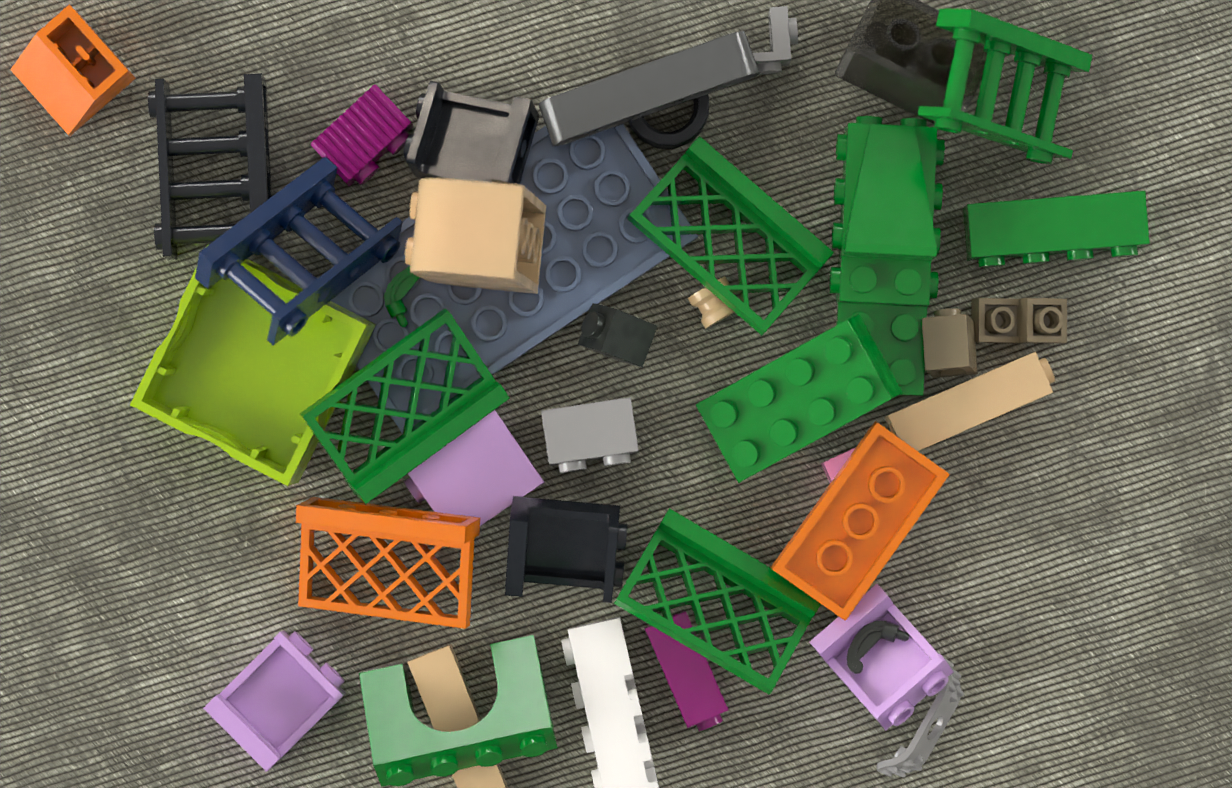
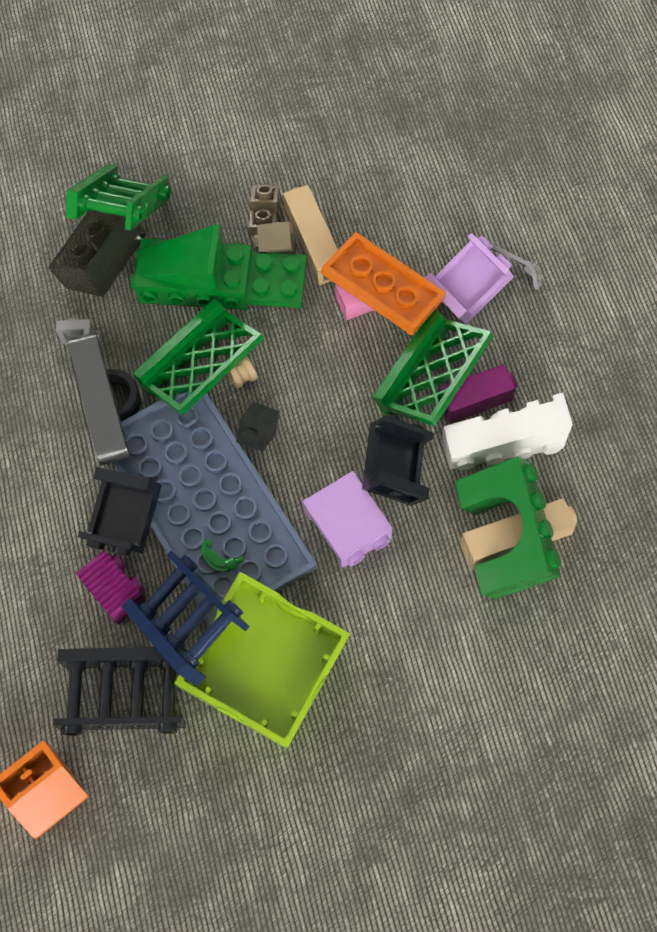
camera: 85 degrees left, 20 degrees down
(276, 699) = (499, 656): lavender panel -> none
(394, 524) = (378, 573): orange fence -> none
(425, 437) = (320, 548): green fence -> none
(476, 235) = (181, 487): tan brick -> none
(590, 433) = (323, 440): light grey brick -> none
(799, 398) = (304, 316): green brick -> none
(867, 638) = (458, 289): pearl dark grey piece -> none
(1056, 226) = (209, 183): green brick -> none

